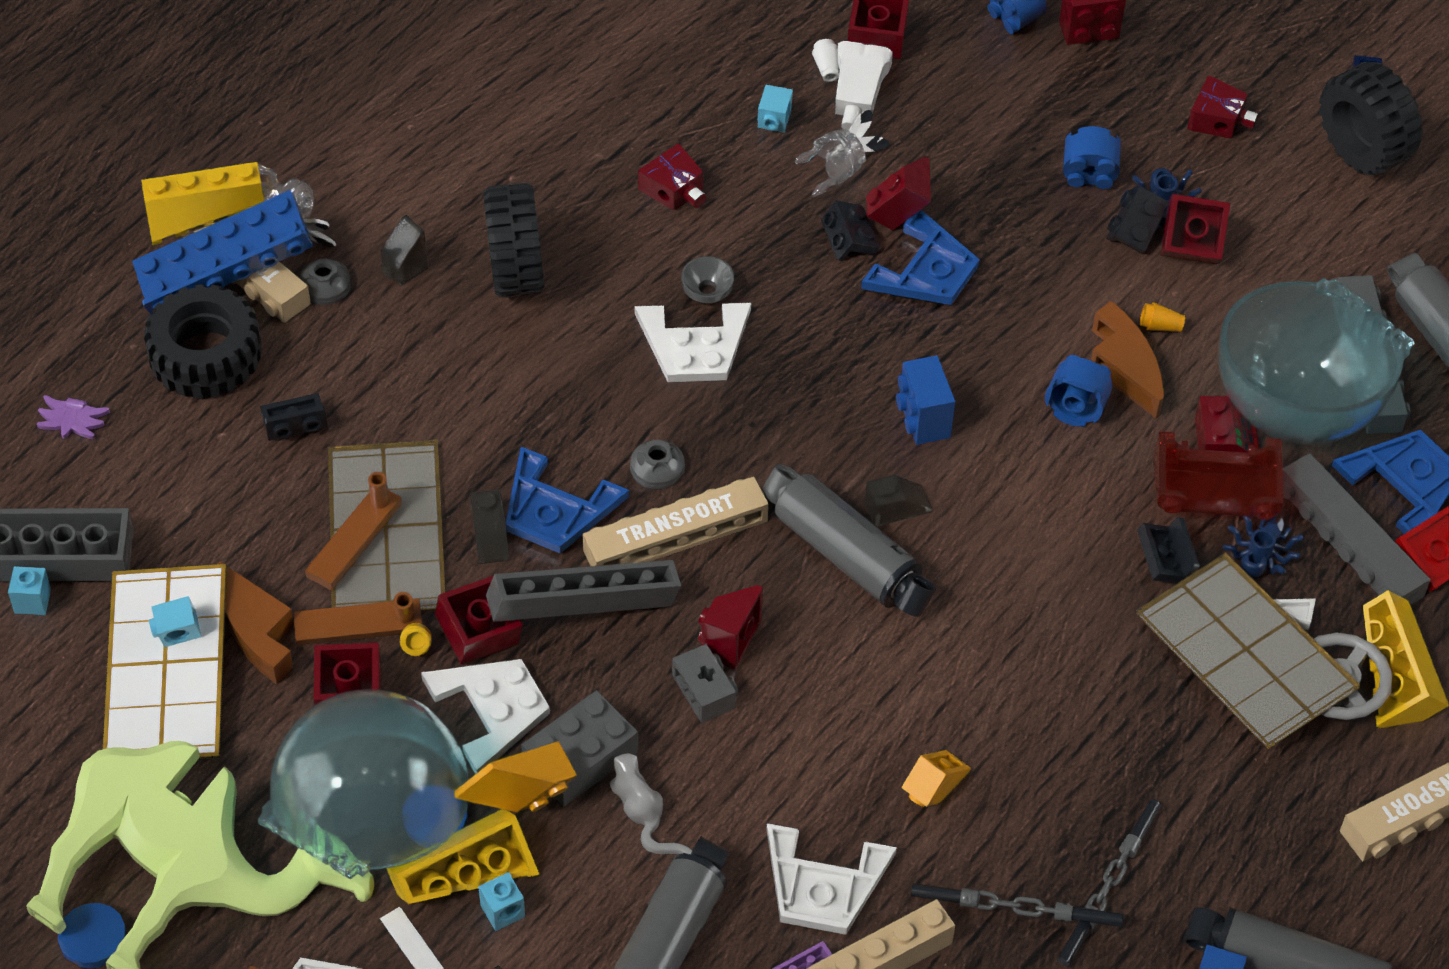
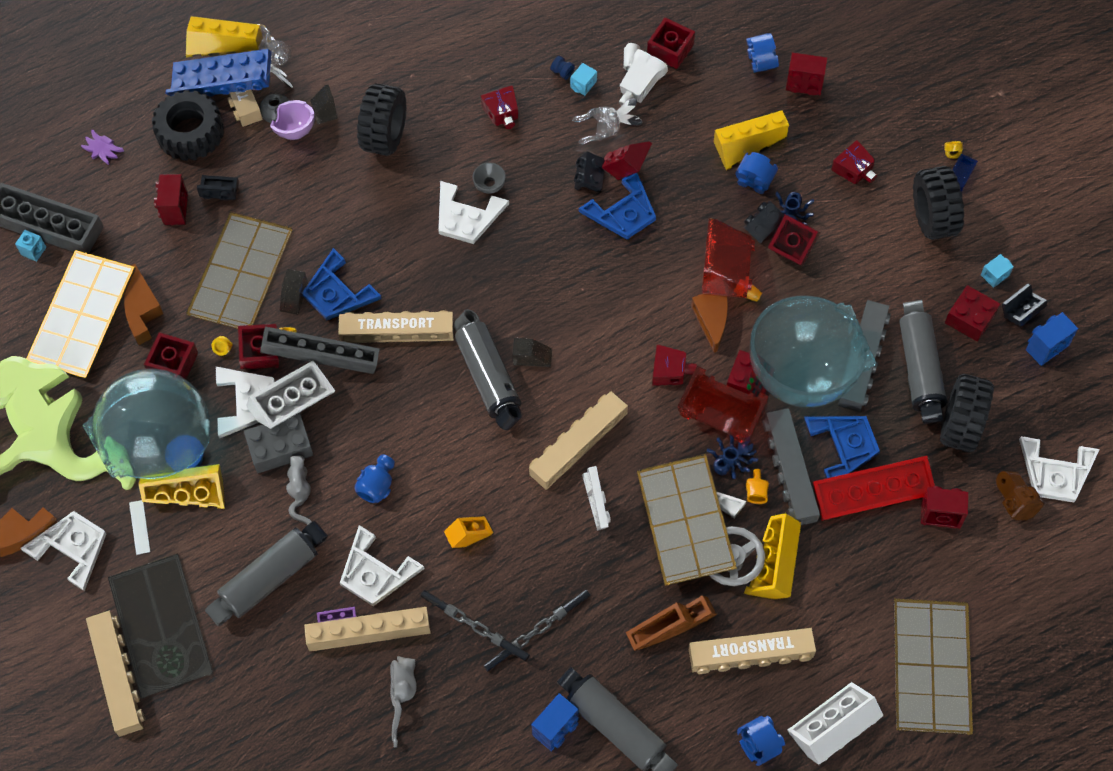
camera: 25 degrees right, 10 degrees up
(175, 622) = (91, 292): medium azure brick -> none
(232, 452) = (171, 199): none -> dark red brick
(355, 533) = (218, 270): dark orange piece -> none
(357, 620) = (196, 323): dark orange piece -> none
(368, 285) = (293, 120): none -> lavender cylinder
(501, 901) = (193, 518): medium azure brick -> none
(520, 780) = (228, 454): light orange slope -> none
(568, 671) = (289, 395): none -> white slope
(657, 473) = (409, 290): dark grey piece -> none
(704, 683) = (366, 438): dark grey brick -> none
(731, 623) = (395, 399): dark red slope -> none
(735, 101) = (562, 67): none -> dark blue wheel
(760, 751) = (375, 480): none -> blue piece
(925, 400) = (575, 297): blue brick -> none
(1030, 596) = (578, 440): none -> tan brick
(1043, 124) = (749, 137): none -> yellow wedge
(1079, 391) = (670, 321): blue brick -> none
(1108, 453) = (670, 366): none -> dark red torso
(1113, 665) = (596, 498): none -> white wing
(1120, 283) = (727, 261): none -> clear red windscreen
(1168, 551) = (673, 440): black bracket -> none
(1301, 800) = (671, 622): none -> dark orange slope
(1320, 577) = (757, 488): none -> light orange piece
(1338, 49) = (953, 146): none -> yellow tile

